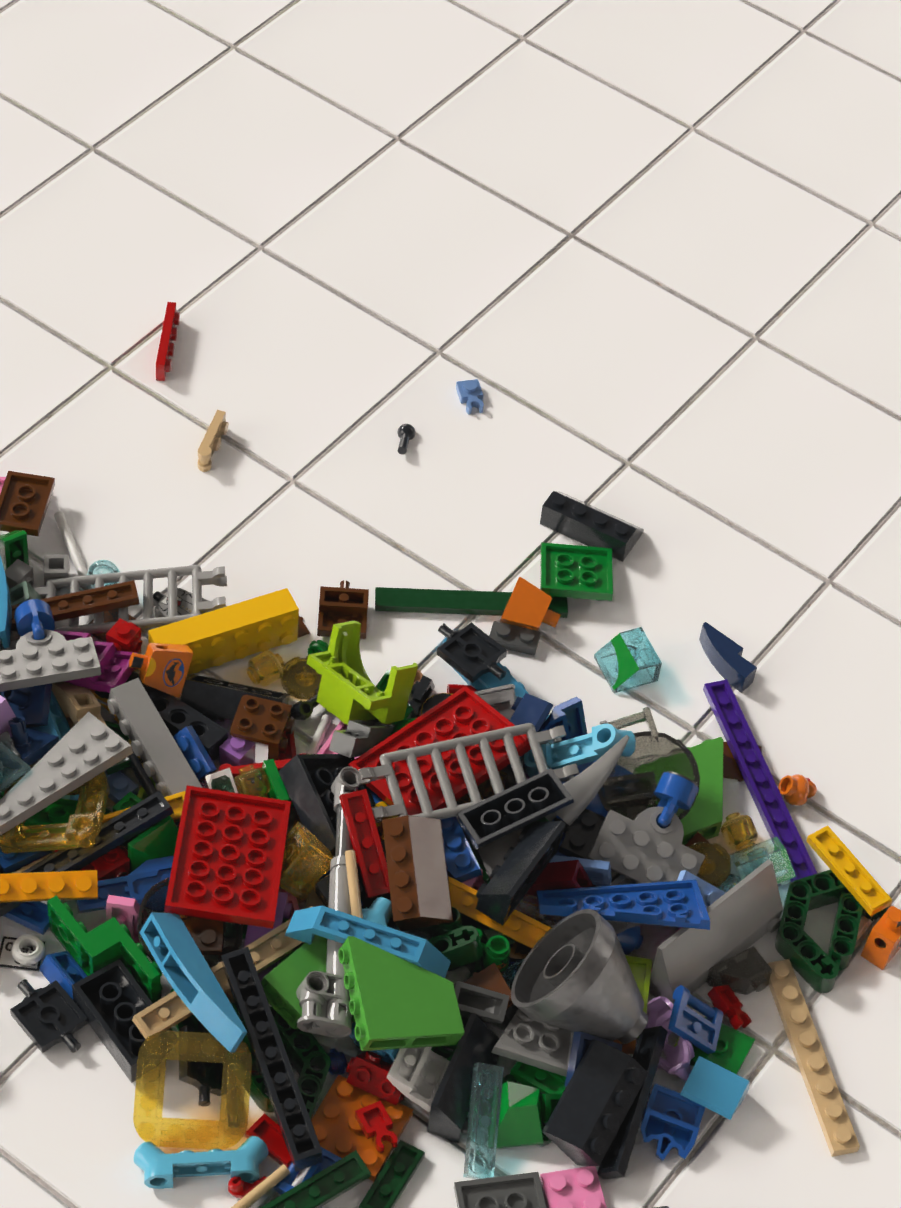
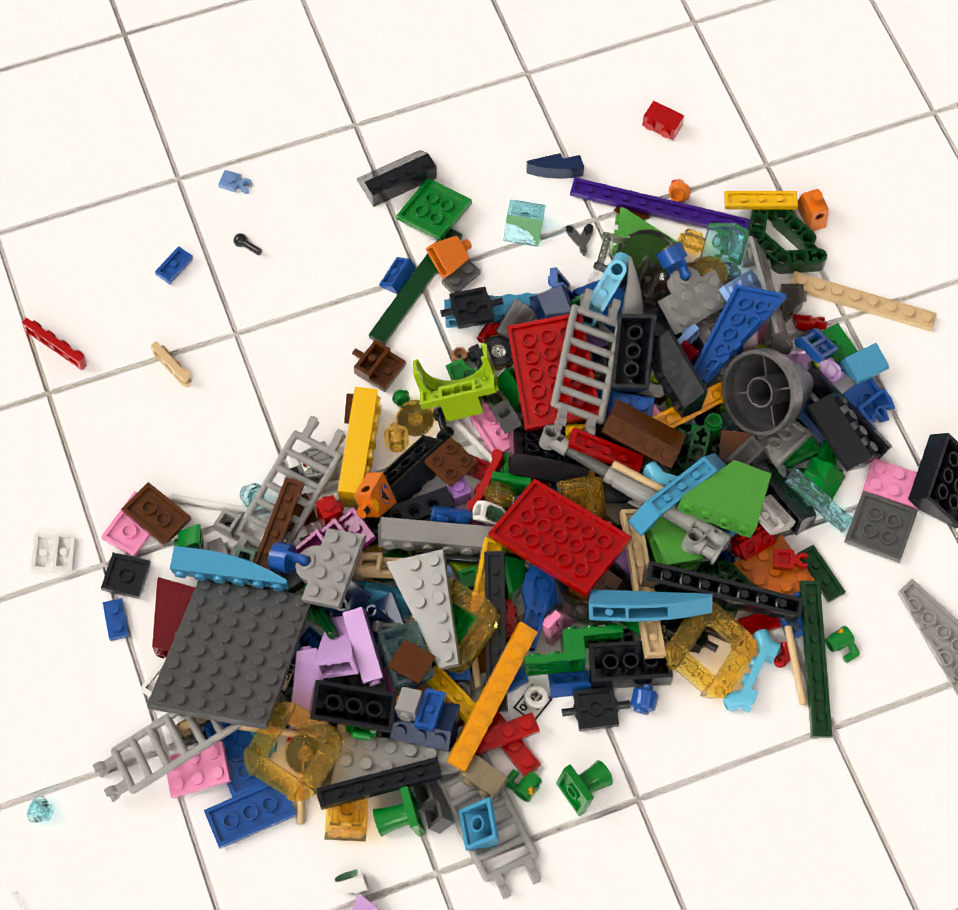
camera: 55 degrees left, 15 degrees up
(91, 1060) = (644, 699): none -> blue head
(331, 391) = (174, 265): none -> blue plate
(471, 580) = (398, 275): none -> blue slope
(667, 728) = (580, 240): none -> dark grey piece
(877, 731) = (663, 120): none -> red brick

